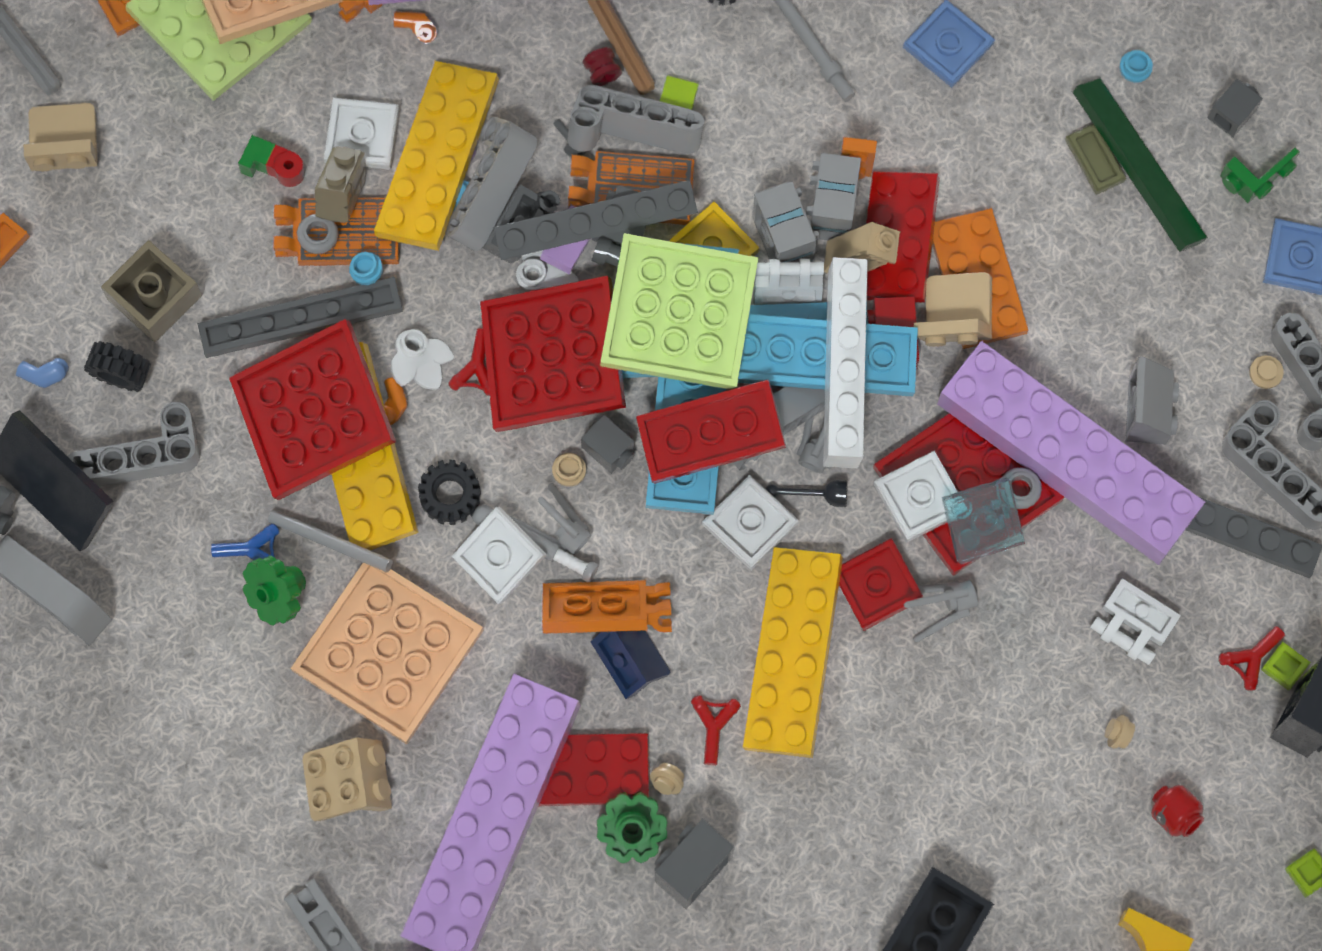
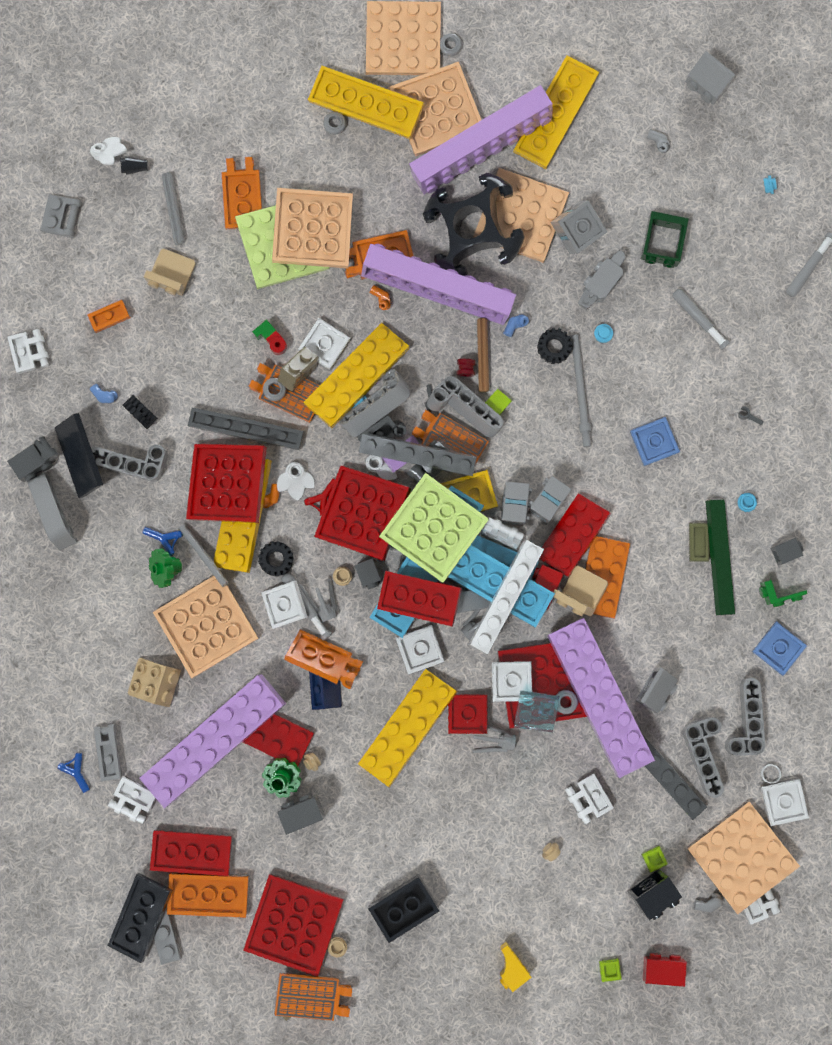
camera: 30 degrees right, 10 degrees up
(151, 291) = (176, 379): dark tan brick -> none
(366, 268) = (290, 419): medium azure plate -> none
(714, 725) = (349, 744): red piece -> none
(834, 492) = (470, 655): black hinge -> none
(860, 149) = (573, 483): orange plate -> none
(868, 242) = (547, 537): tan window -> none
(1177, 810) = (559, 906): red head -> none
(1253, 657) = (640, 846): red piece -> none
(1266, 372) = (727, 701): tan plate -> none

